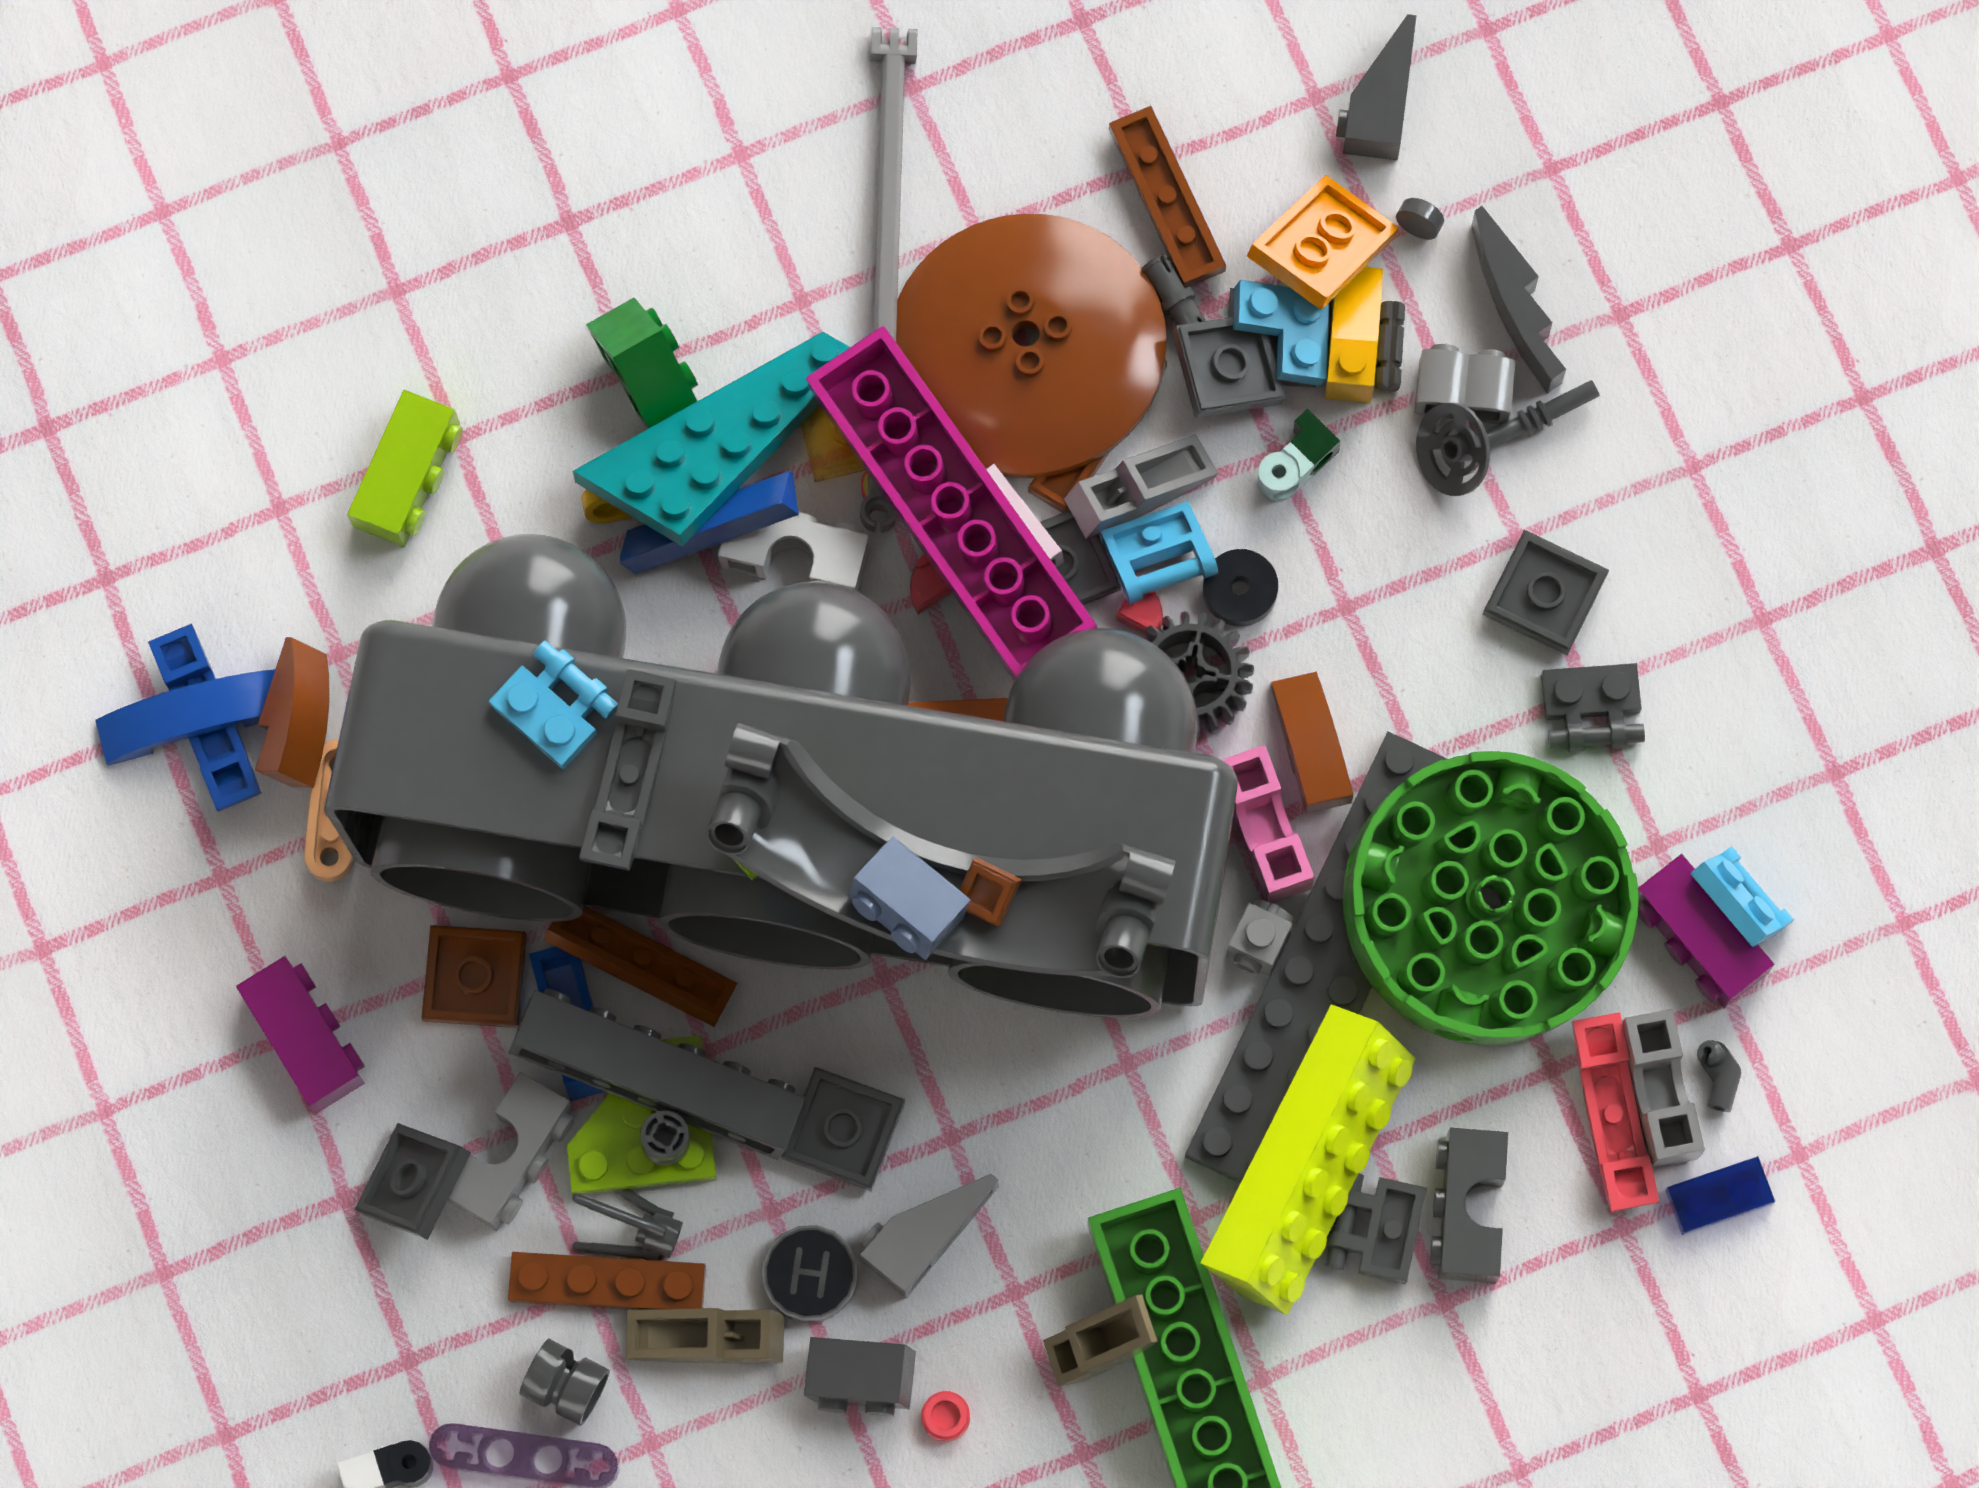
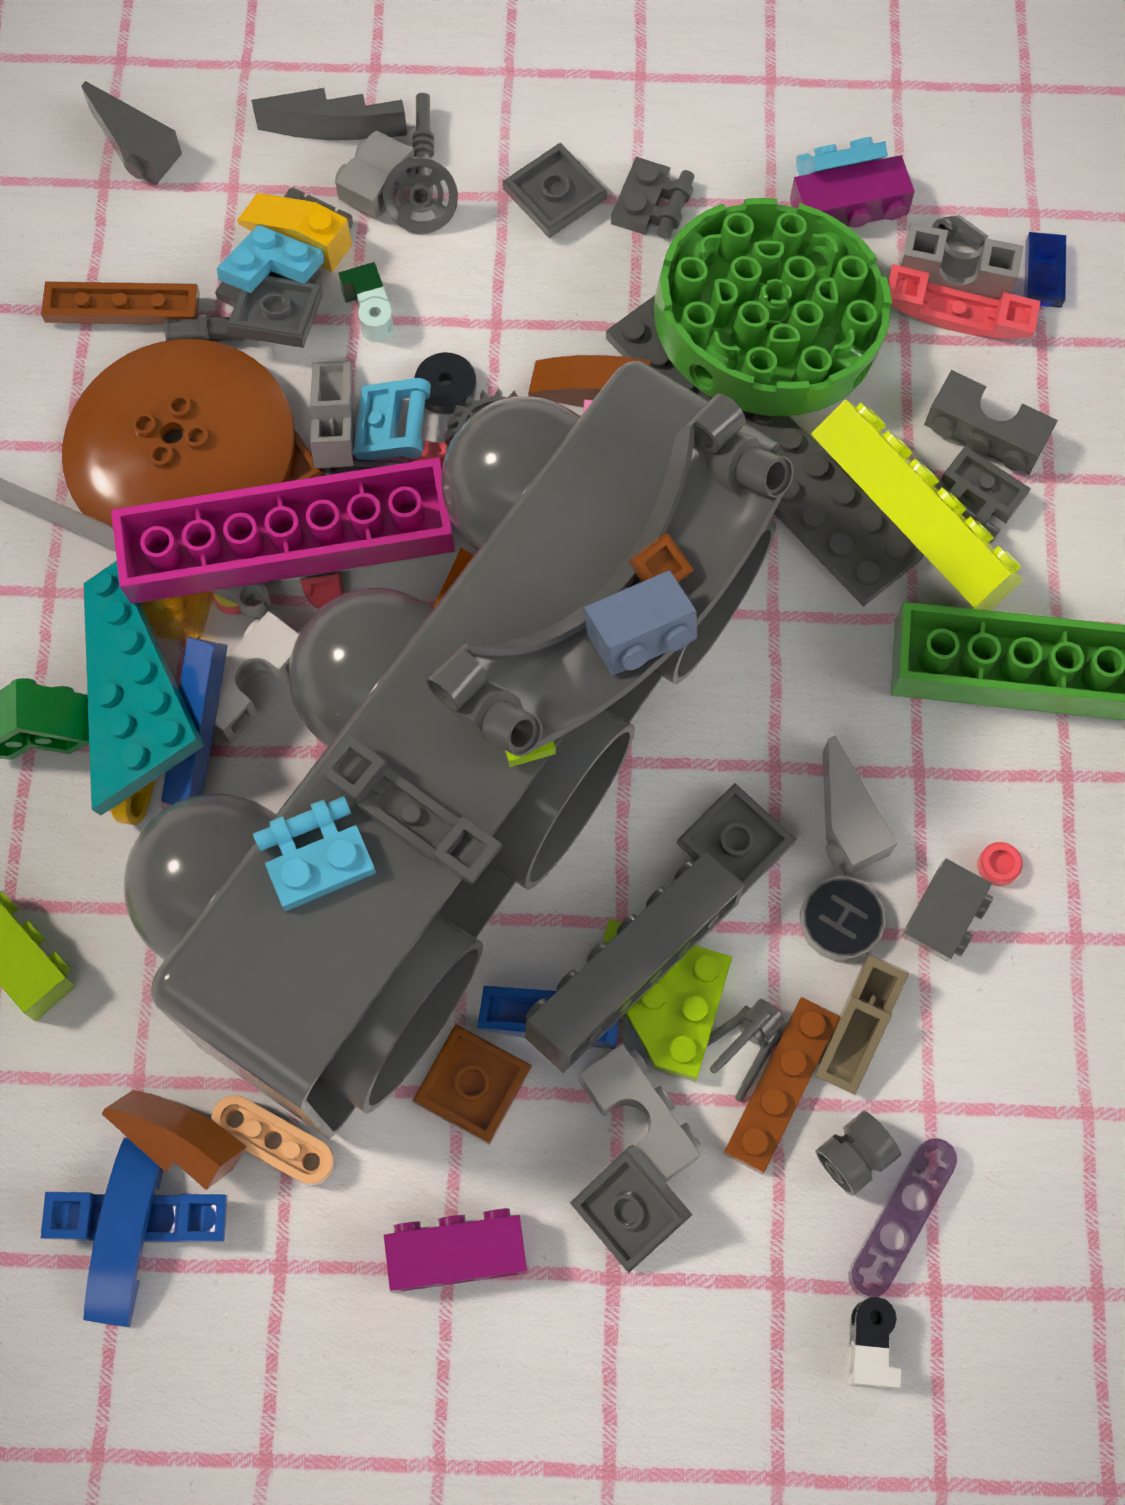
camera: 70 degrees left, 5 degrees down
(644, 964) = (534, 935): dark orange plate -> none
(667, 1147) = (689, 986): dark grey wheel -> none
(1100, 1341) = (1004, 706): dark tan slope -> none
(1323, 242) = (219, 210): light orange plate -> none
(1420, 218) = (235, 150): dark grey tile -> none

